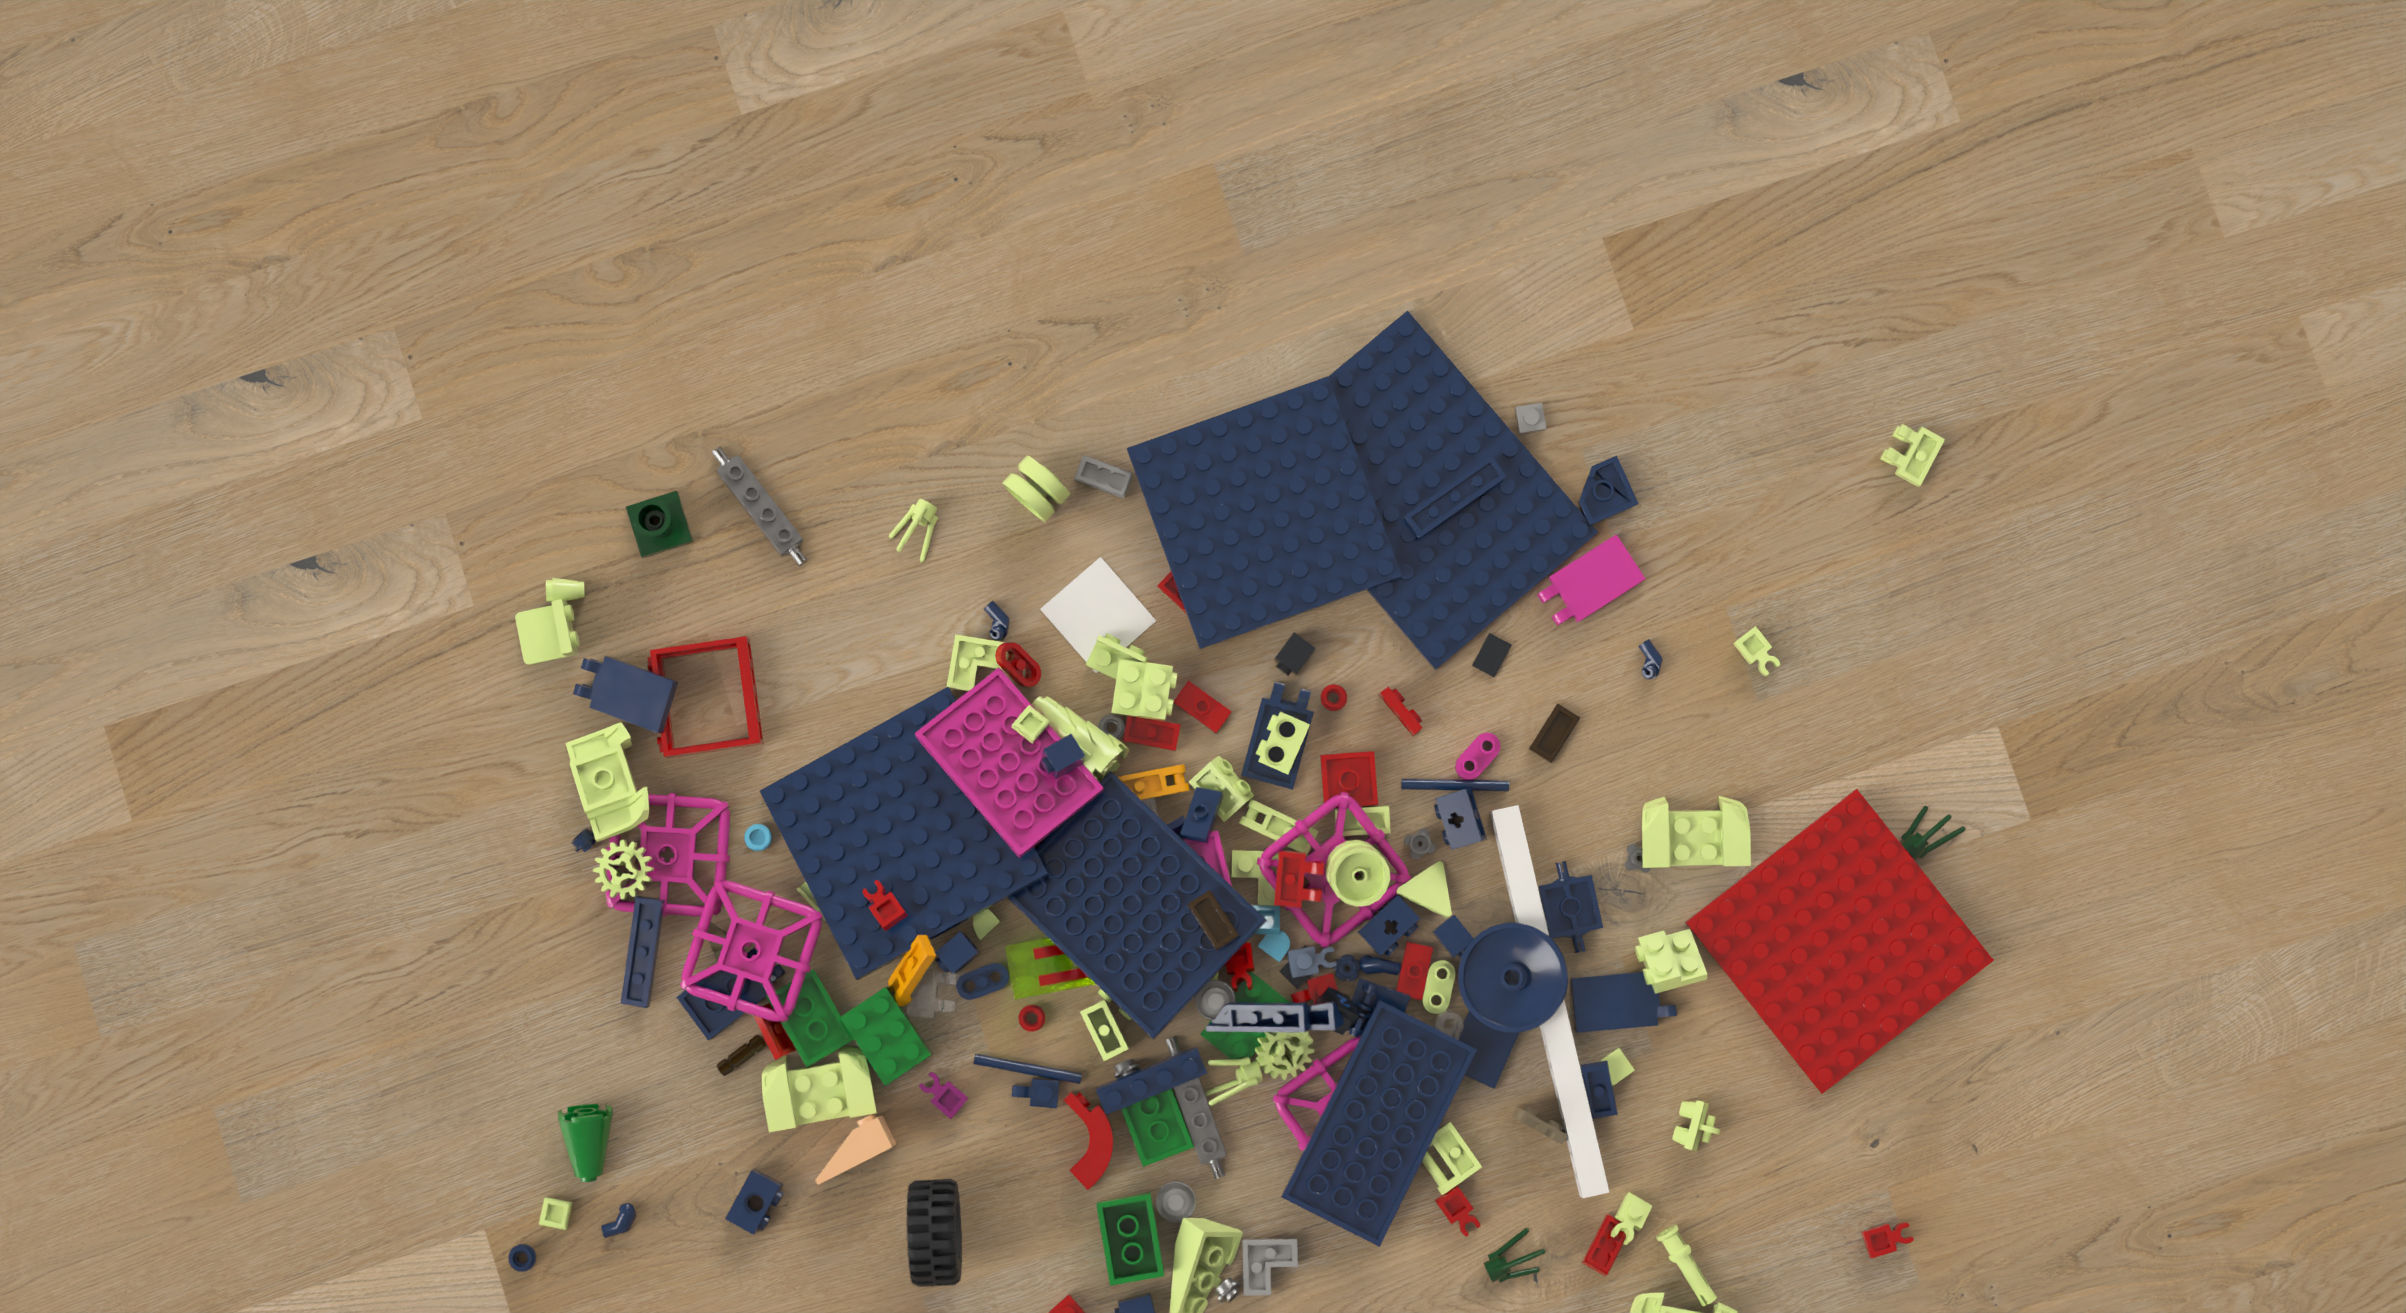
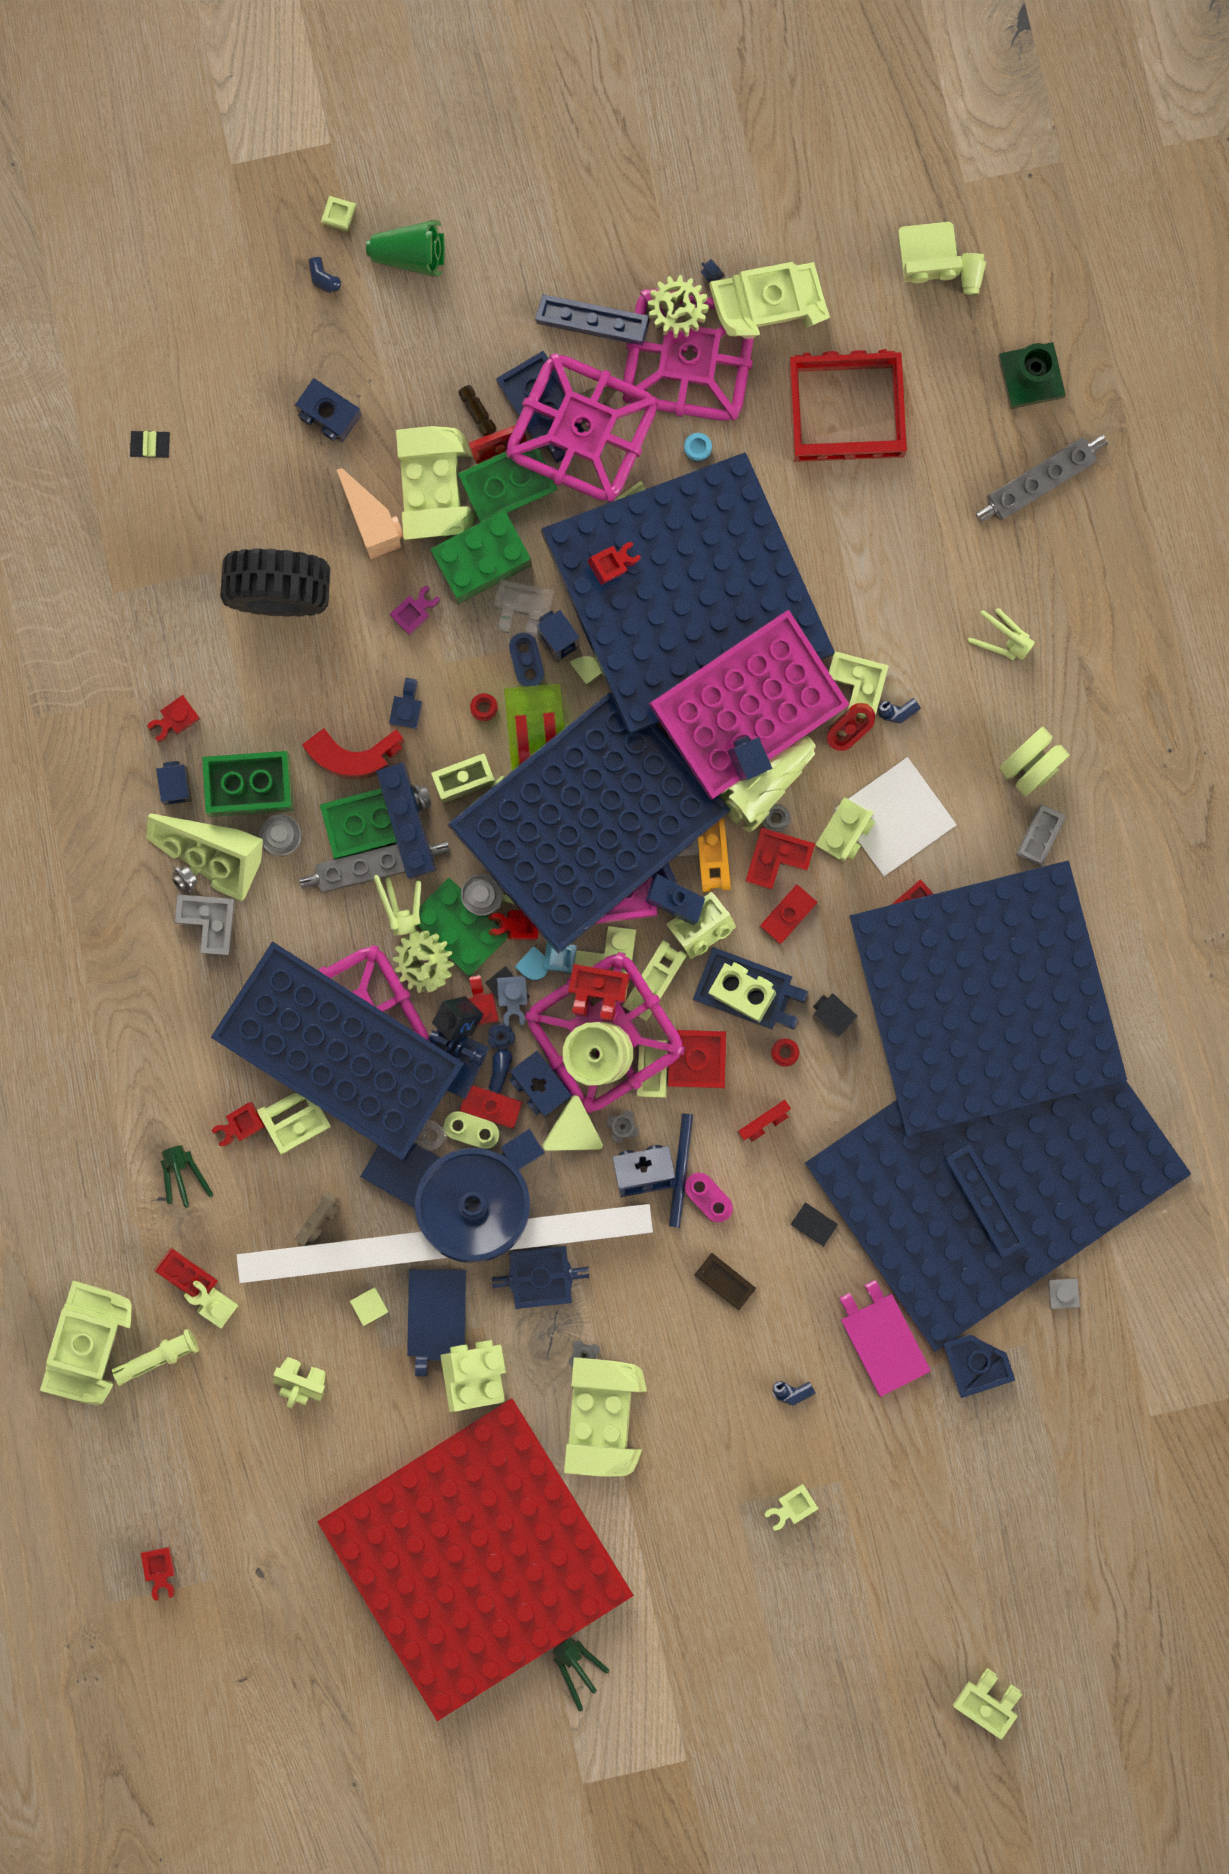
camera: 95 degrees right, 0 degrees up
(515, 1262) = (293, 170): dark blue plate -> none
(628, 692) = (859, 327): dark blue tile -> none
(911, 969) = (545, 586): light orange plate -> none
(1027, 1068) = (432, 698): dark blue piece -> none
(1030, 724) = (786, 730): yellowish green tile -> none
(1143, 690) = (811, 853): yellowish green plate -> none
(1213, 920) = (563, 897): dark brown tile -> none
(1276, 1017) = (456, 953): wedge -> none
(1599, 1089) = (347, 1285): dark blue plate -> none

